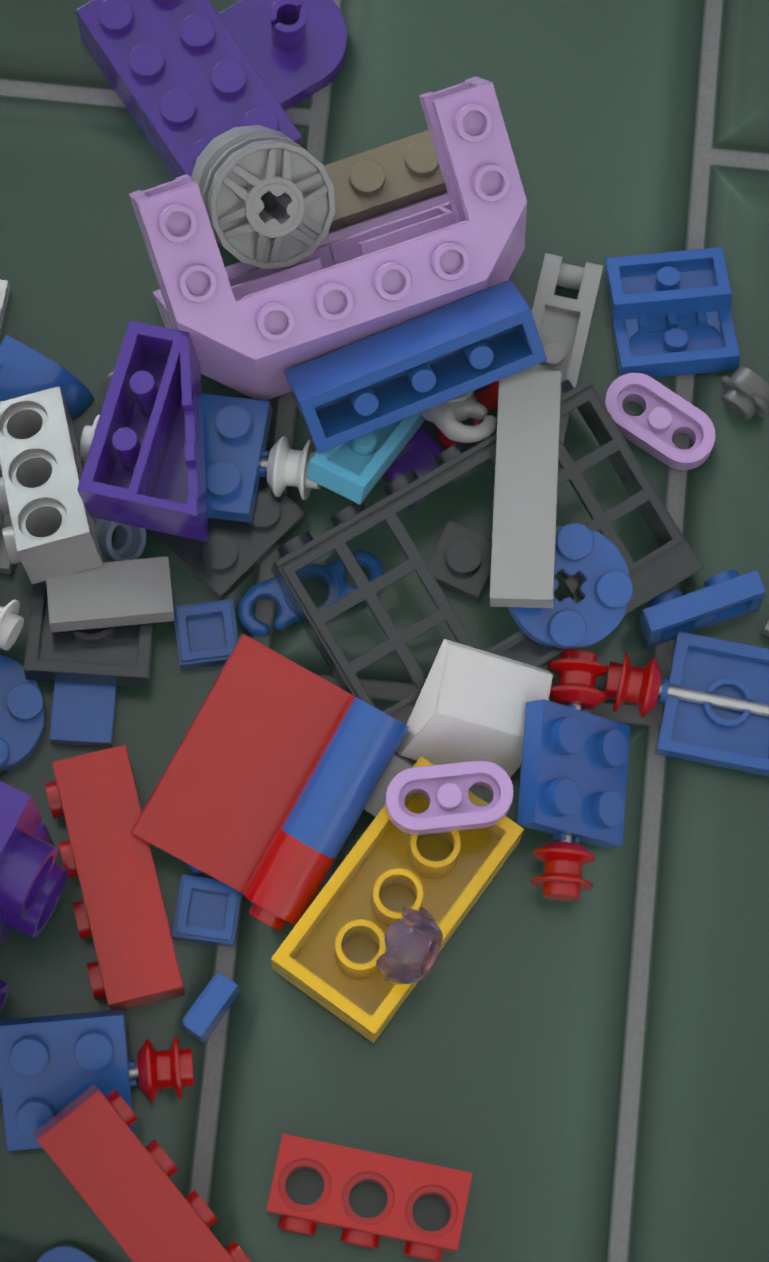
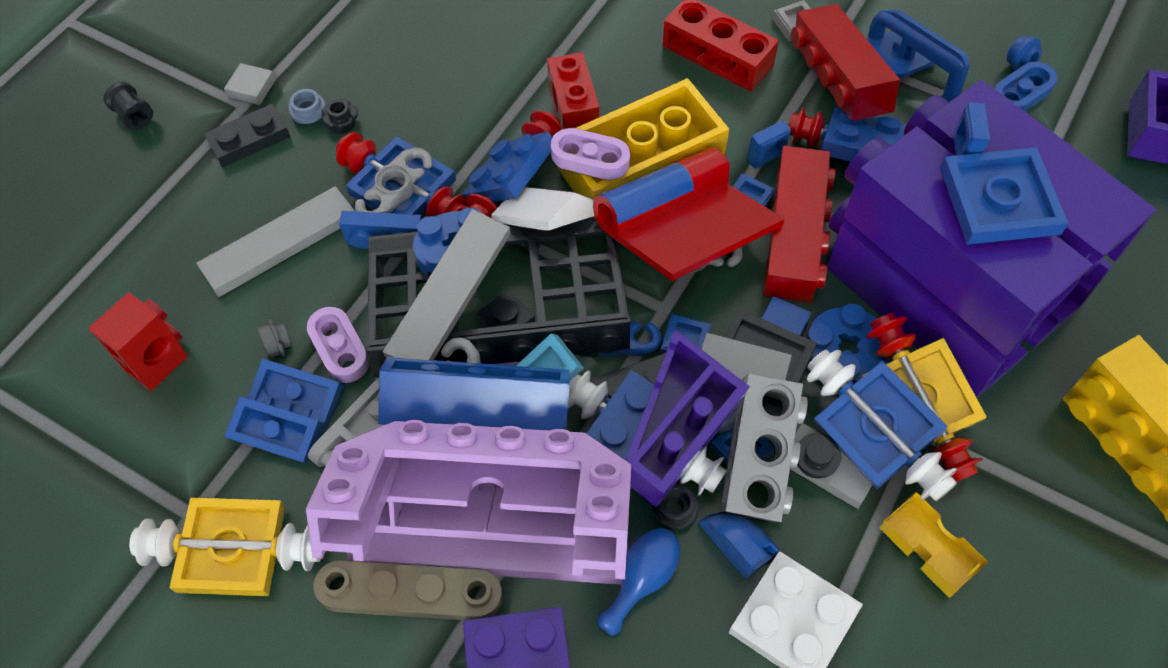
camera: 150 degrees left, 15 degrees down
(128, 297) = (648, 568): none -> blue piece
(237, 173) = (518, 569): light grey wheel -> none
(410, 947) = (650, 87): plate -> none
(550, 964) = (572, 90): none -> red brick
(627, 128) = (224, 546): none -> yellow plate
(730, 701) = (396, 169): none -> light grey piece

